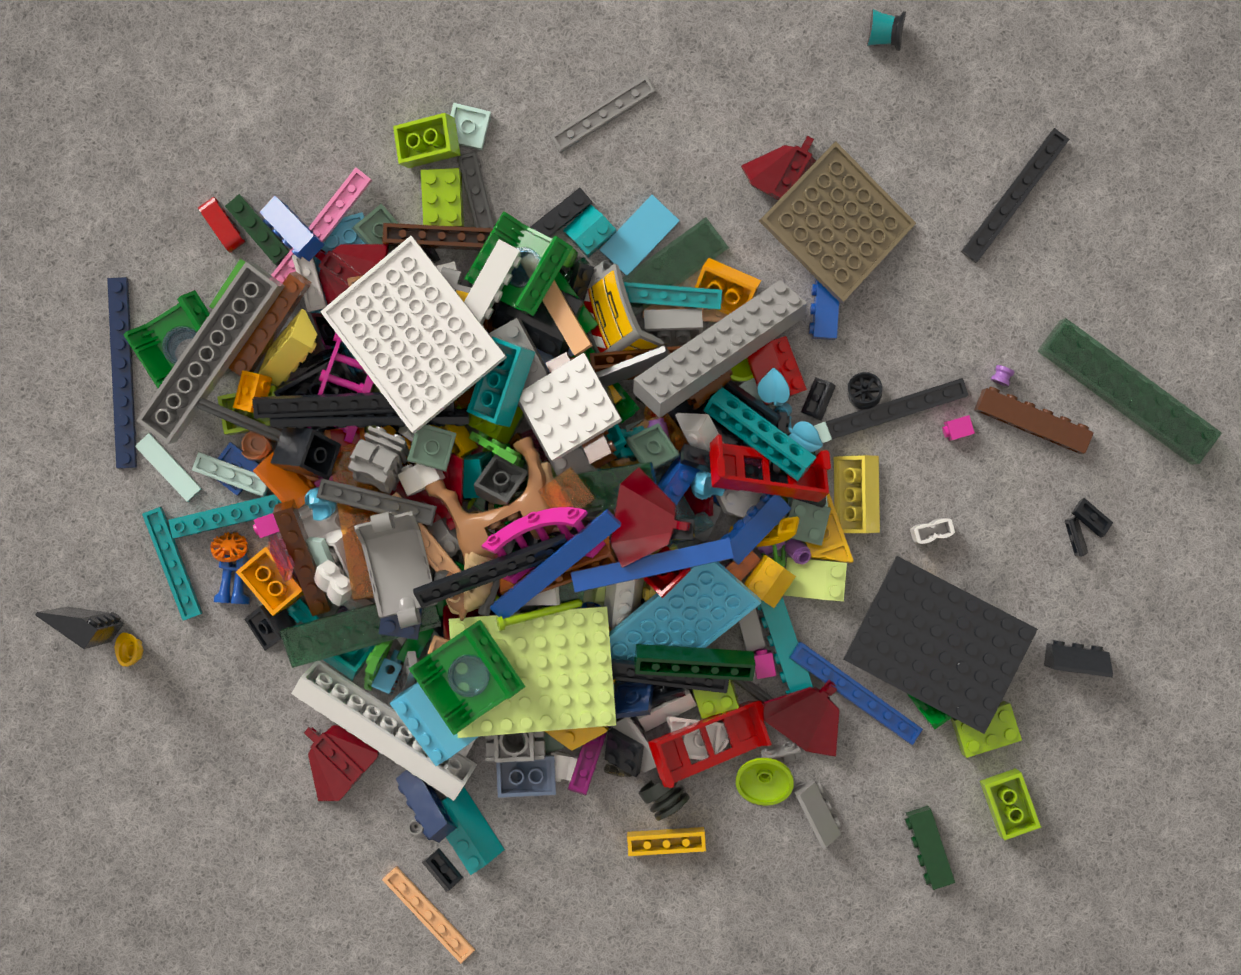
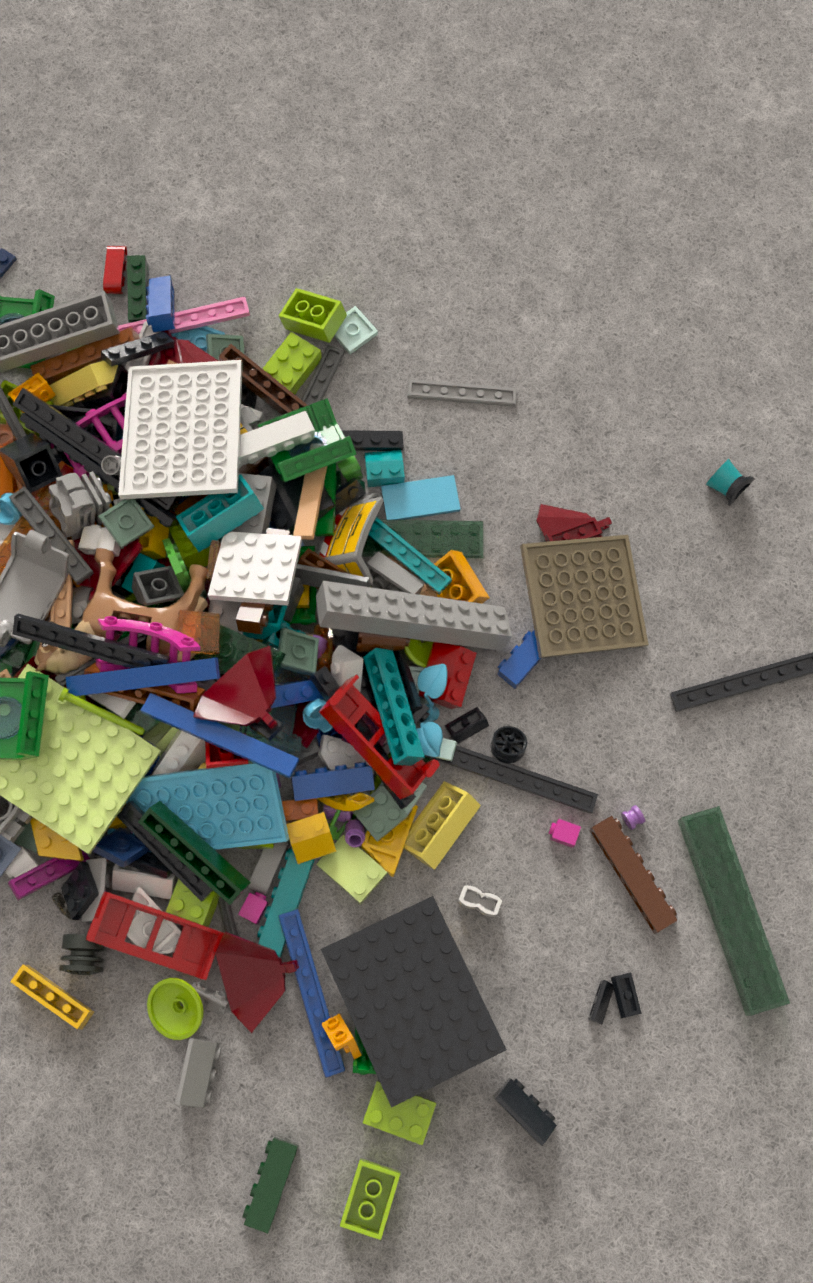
camera: 35 degrees right, 15 degrees down
(312, 288) = (137, 348): none -> black plate
(382, 412) = (109, 465): none -> light grey wheel
(525, 421) = (213, 554): none -> clear orange tile
(903, 709) = (341, 1036): none -> light orange bracket

